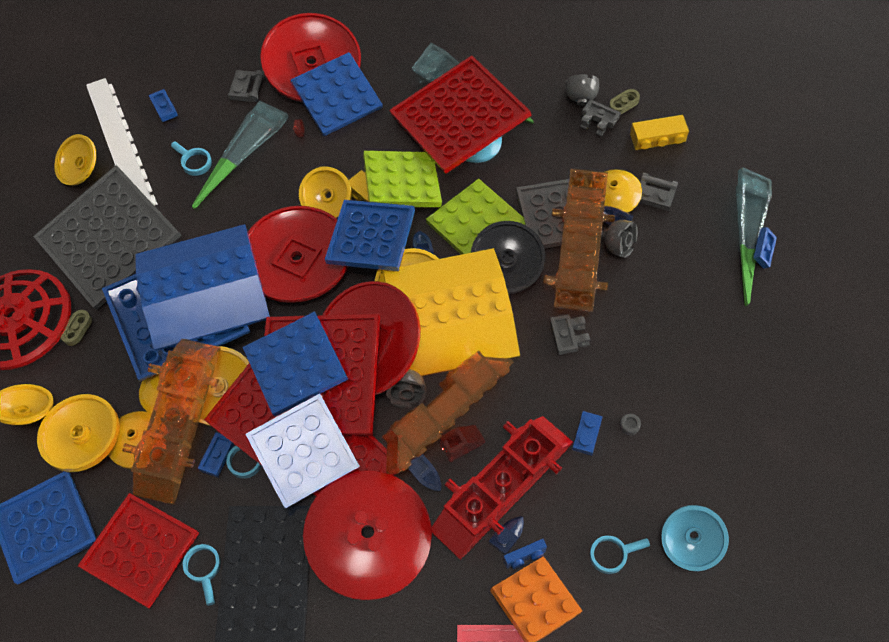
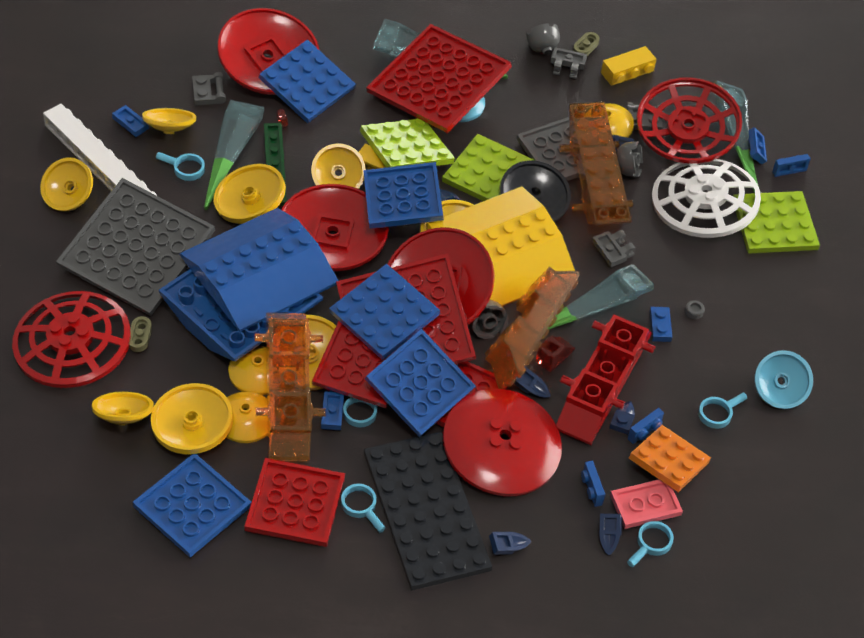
camera: 25 degrees left, 10 degrees down
(193, 110) = (169, 119): none -> yellow dish
(233, 201) = (249, 193): none -> yellow dish
(272, 175) = (274, 150): none -> dark green plate
(441, 619) = (595, 490): none -> blue plate
(549, 386) = (617, 289): none -> clear light blue plate
(689, 302) = (712, 199): none -> white dish
(698, 198) = (692, 115): none -> red dish
(755, 340) = (780, 224): none -> lime plate
(796, 277) = (791, 165): none -> blue plate

